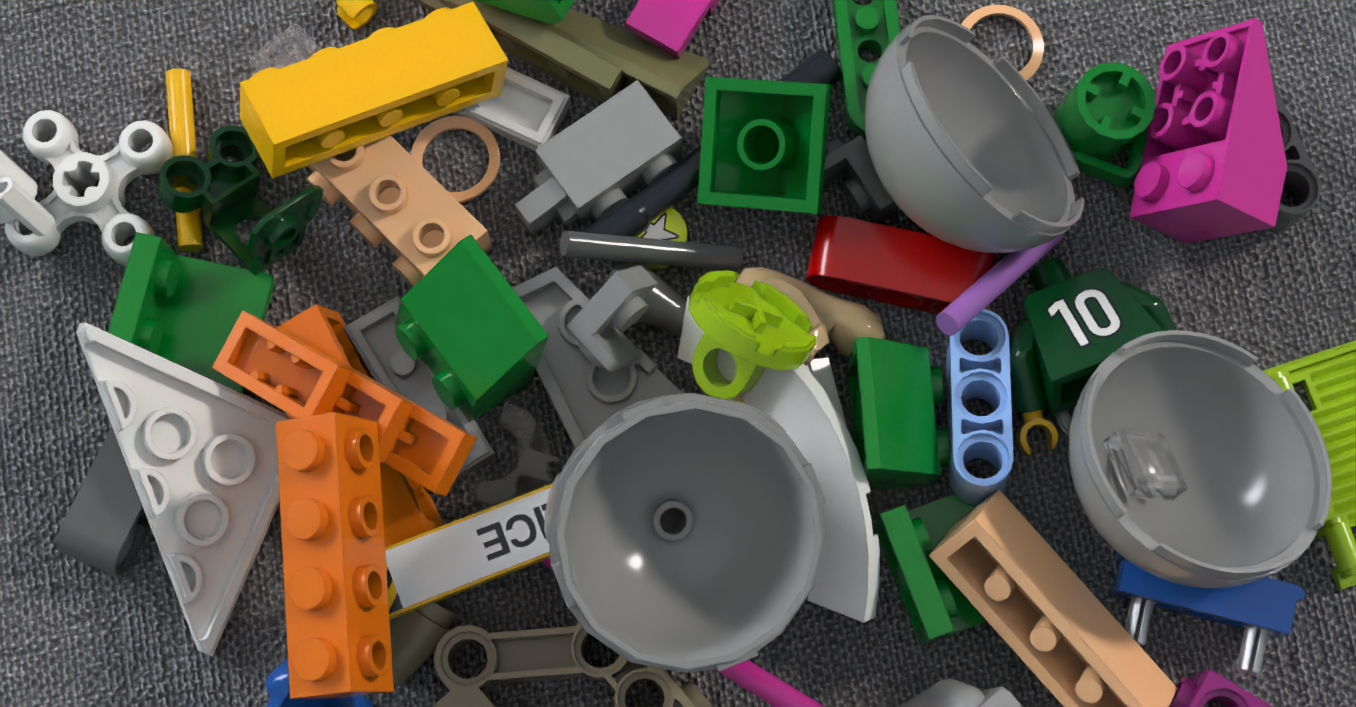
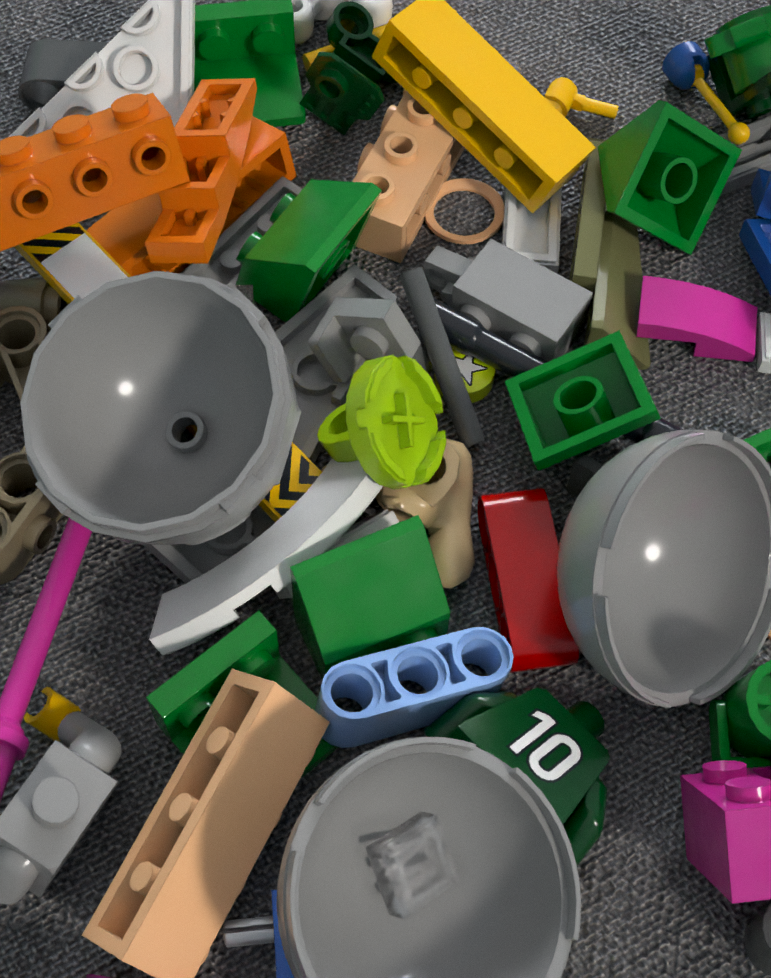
camera: 65 degrees right, 15 degrees down
(989, 287) = (554, 660): medium lavender bar -> none

